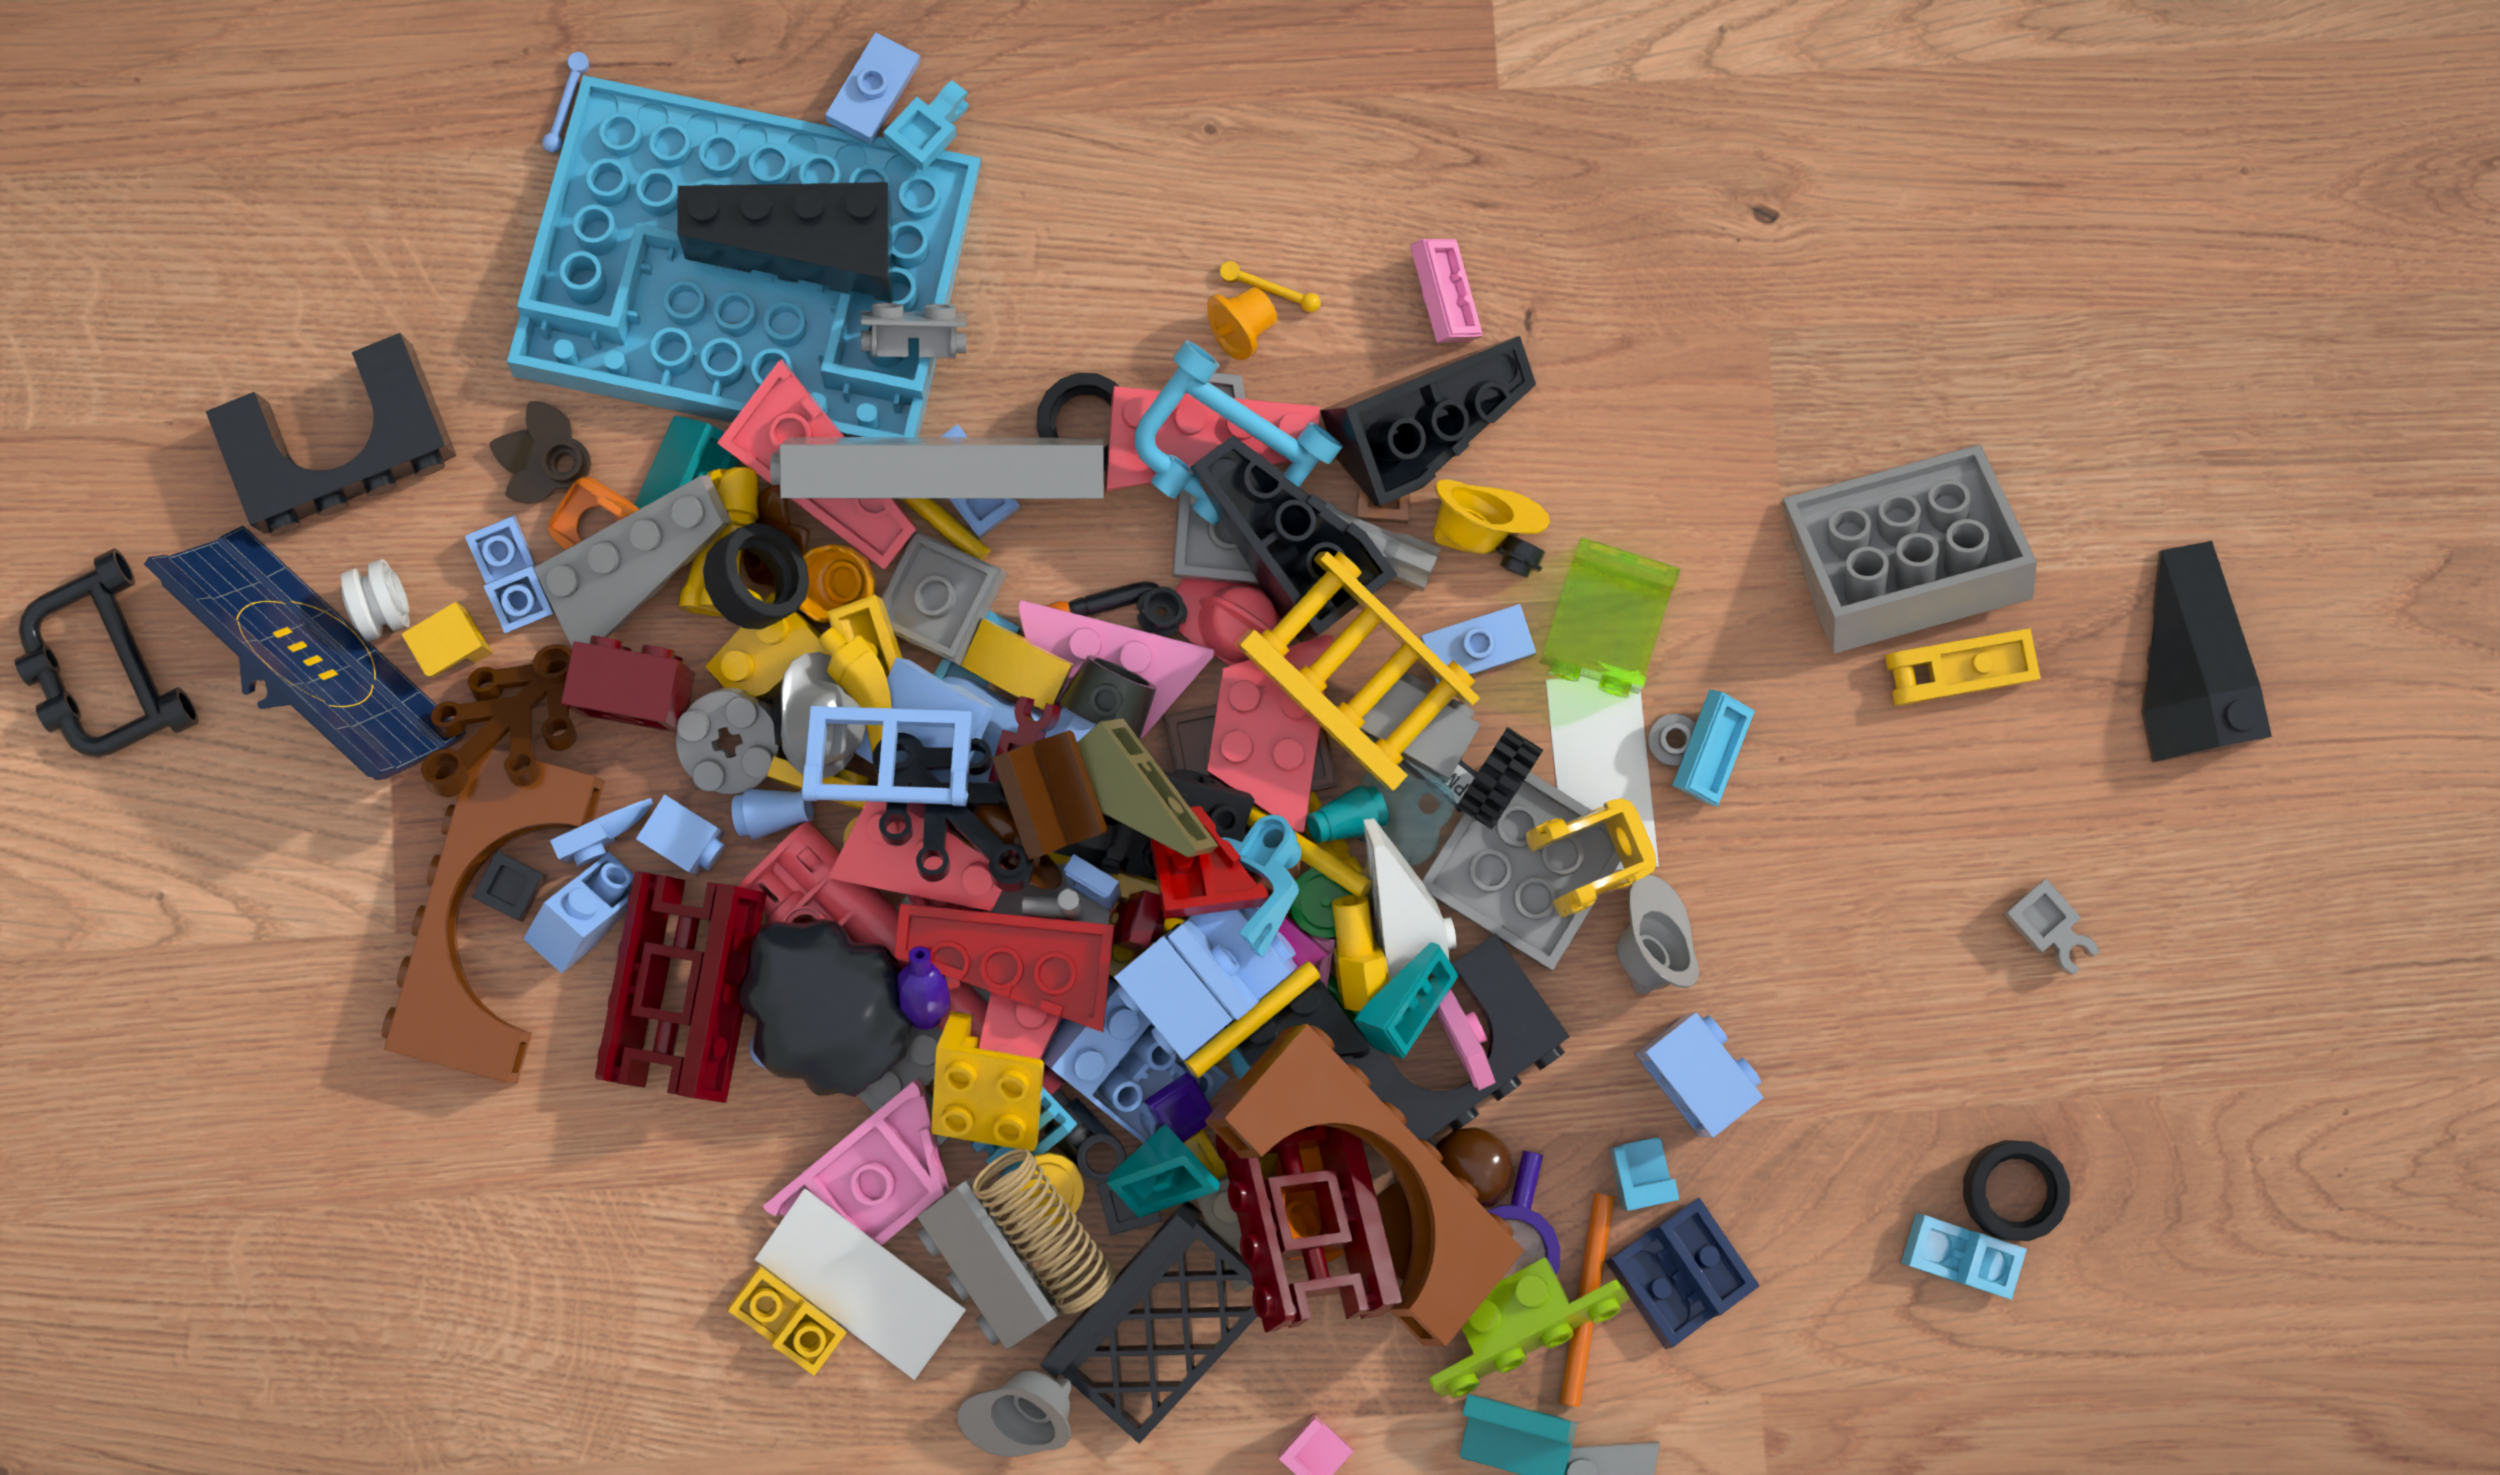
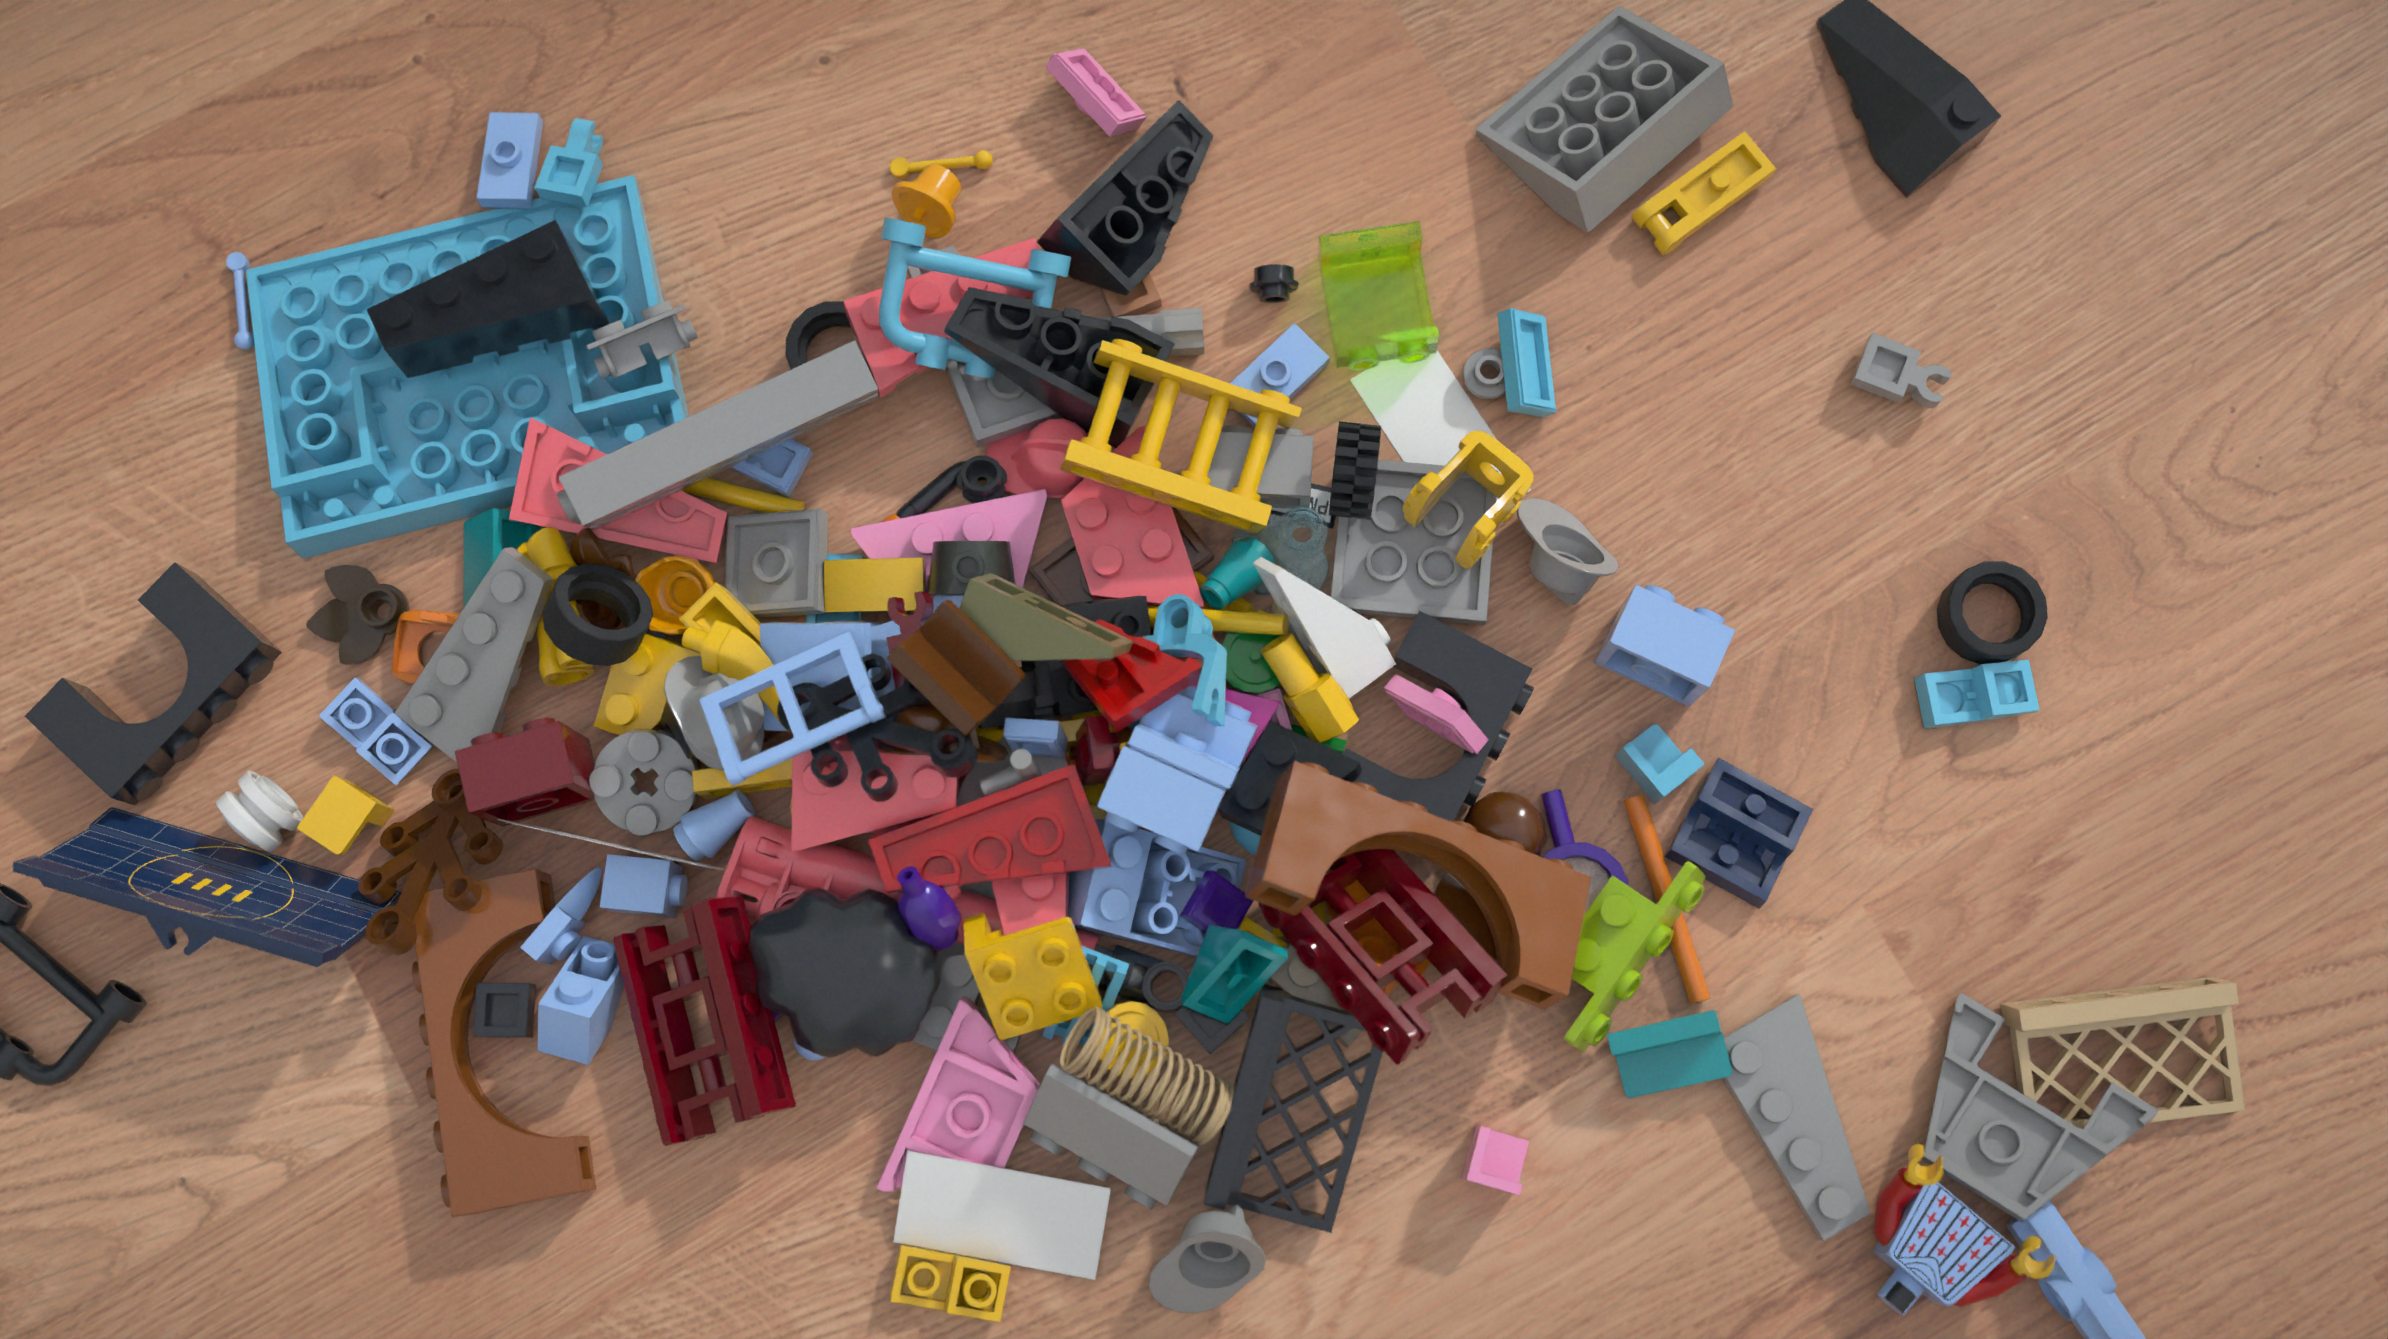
camera: 20 degrees left, 5 degrees down
(672, 787) = (611, 844): none -> white sticker
(1262, 1012) = (1241, 789): yellow bar -> none
(1407, 1002) = (1373, 707): teal slope -> none
(1481, 516) = (1224, 267): yellow piece -> none

